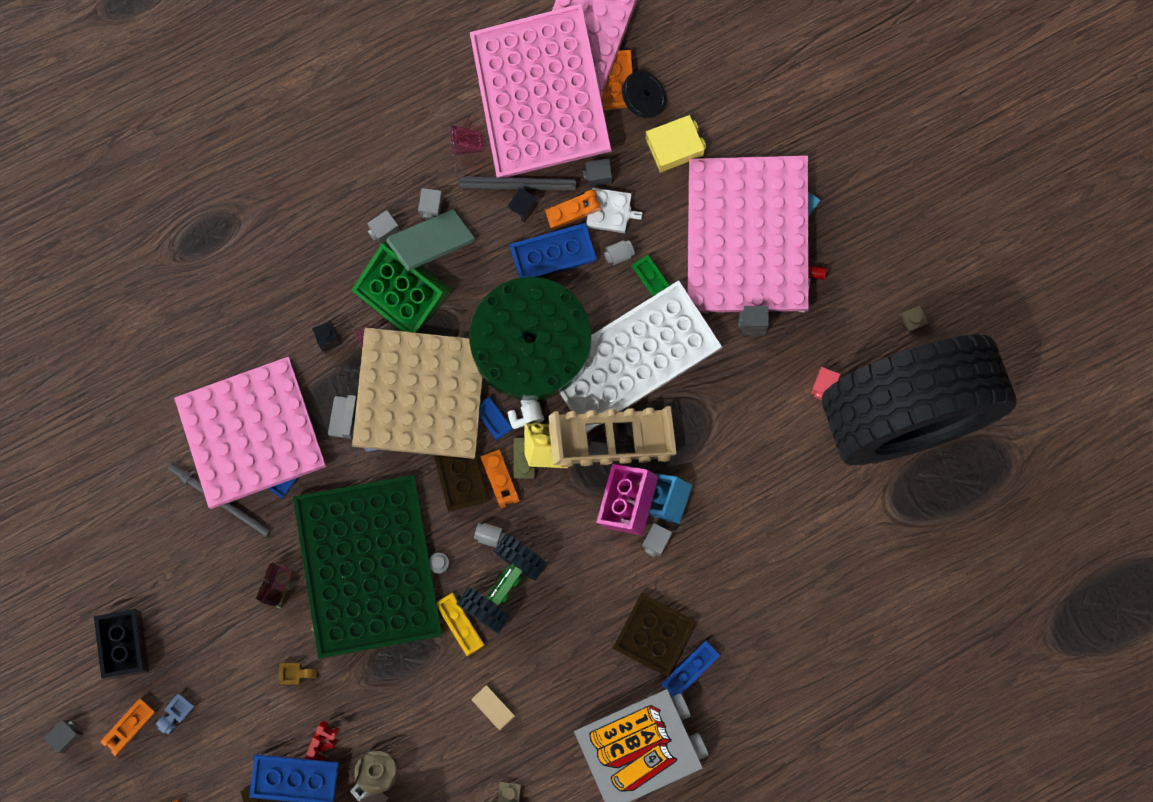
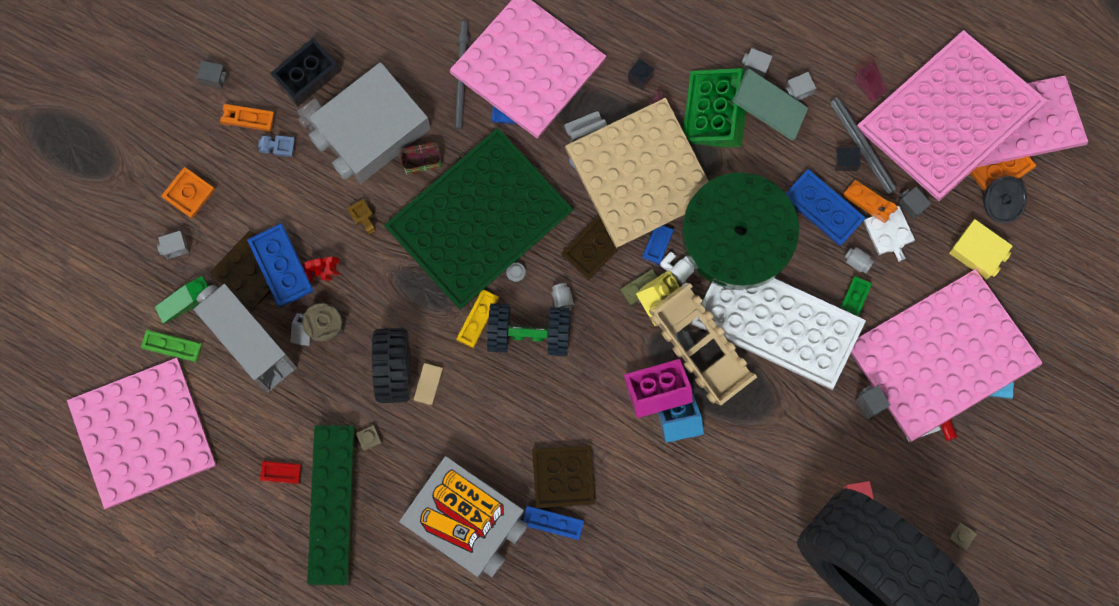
camera: 55 degrees right, 0 degrees up
(166, 663) = (306, 111): none -> clear brick
(211, 615) = (368, 124): none -> light grey brick
(458, 730) = (391, 365): none -> black tyre
(499, 478) = (613, 278): orange plate -> none
(656, 540) = (640, 432): light grey brick -> none

